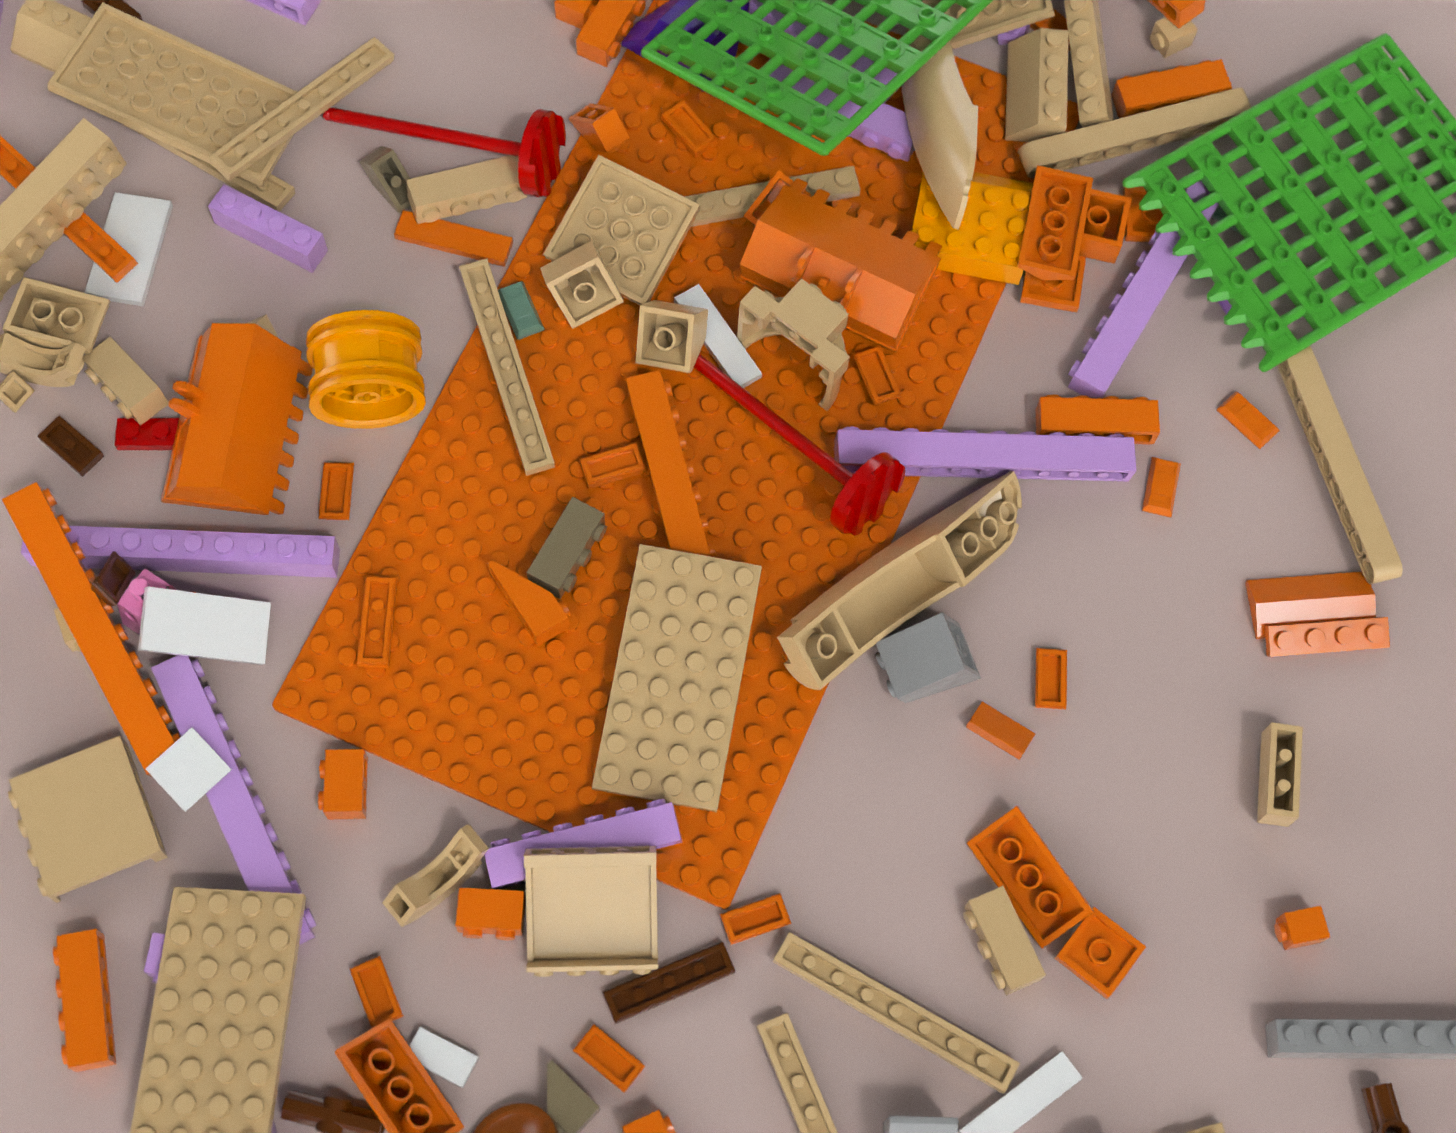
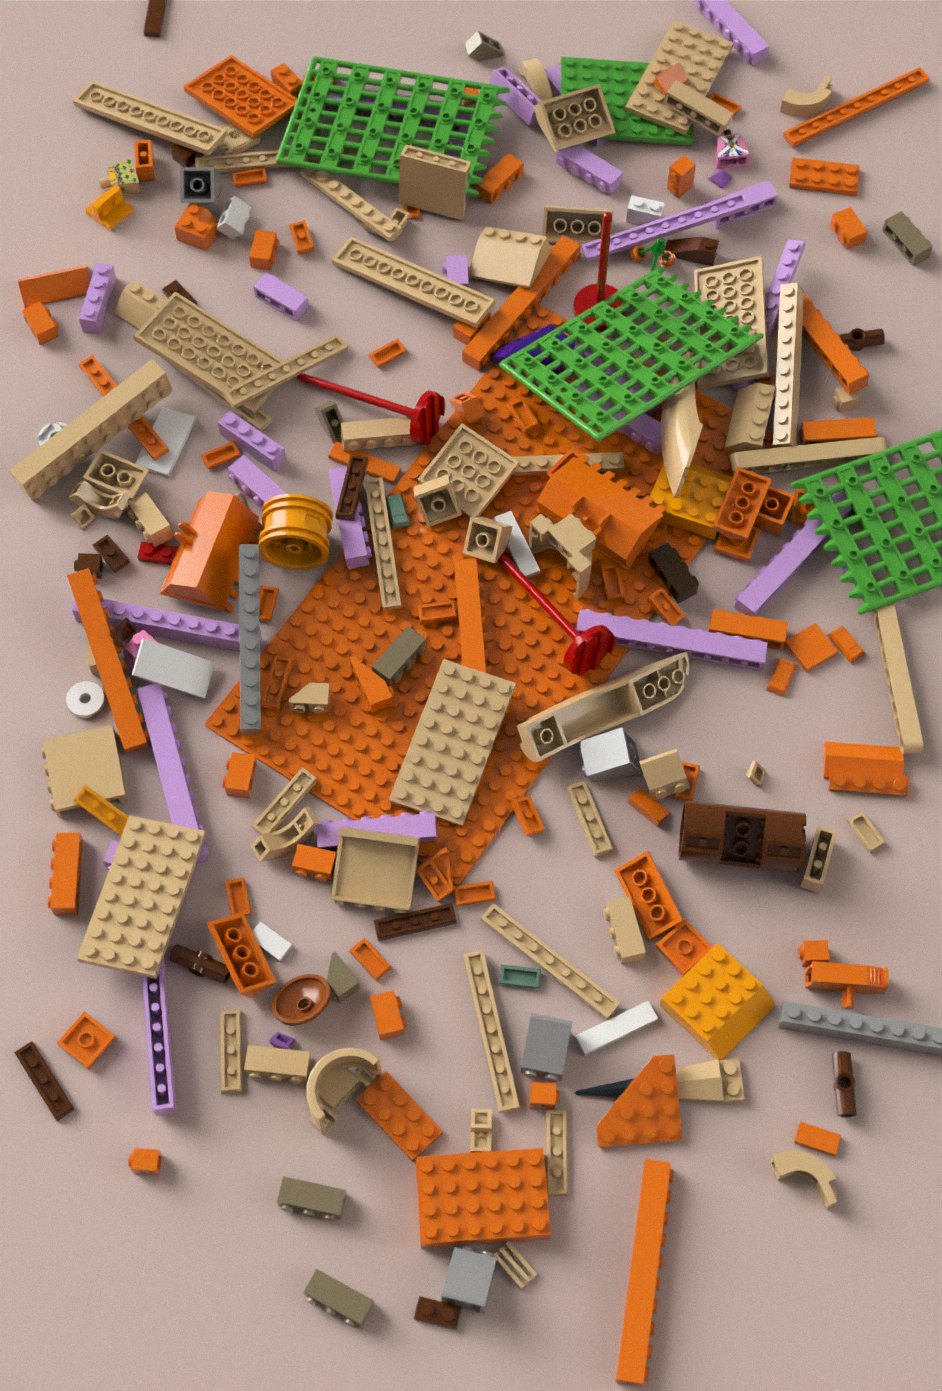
camera: 15 degrees right, 5 degrees down
(39, 468) = (91, 561): none -> reddish brown brick
(56, 684) = (81, 690): none -> white tile
(127, 883) = (102, 809): none -> light orange tile
(188, 769) = (149, 750): white sticker -> none
(222, 258) = (221, 455): none -> orange tile
(284, 295) = (253, 481): none -> lavender brick
(322, 559) = (249, 640): none -> light grey brick
(424, 819) = (285, 802): none -> tan tile
(439, 638) = (311, 698): none -> tan slope
(442, 283) = (352, 487): none -> reddish brown tile
(445, 331) = (351, 531): none -> lavender brick
(459, 57) = (387, 353): none -> orange tile
(693, 900) = (438, 875): none -> orange wing
(816, 777) = (527, 816): none -> orange plate
(853, 1046) = (519, 976): none -> sand green tile
(912, 764) = (589, 819): none -> tan tile
(966, 403) = (665, 607): none -> orange plate
(968, 347) = (673, 572): none -> dark brown brick
(1020, 677) = (664, 774): none -> tan slope
(1154, 649) = (756, 773): none -> tan slope
(1161, 760) = (742, 836): none -> reddish brown cylinder
(1170, 1035) = (718, 1002): none -> light orange slope
(1197, 433) = (811, 647): none -> orange tile
(1339, 715) = (866, 831): none -> tan tile
(1362, 963) = (847, 979): none -> orange piece

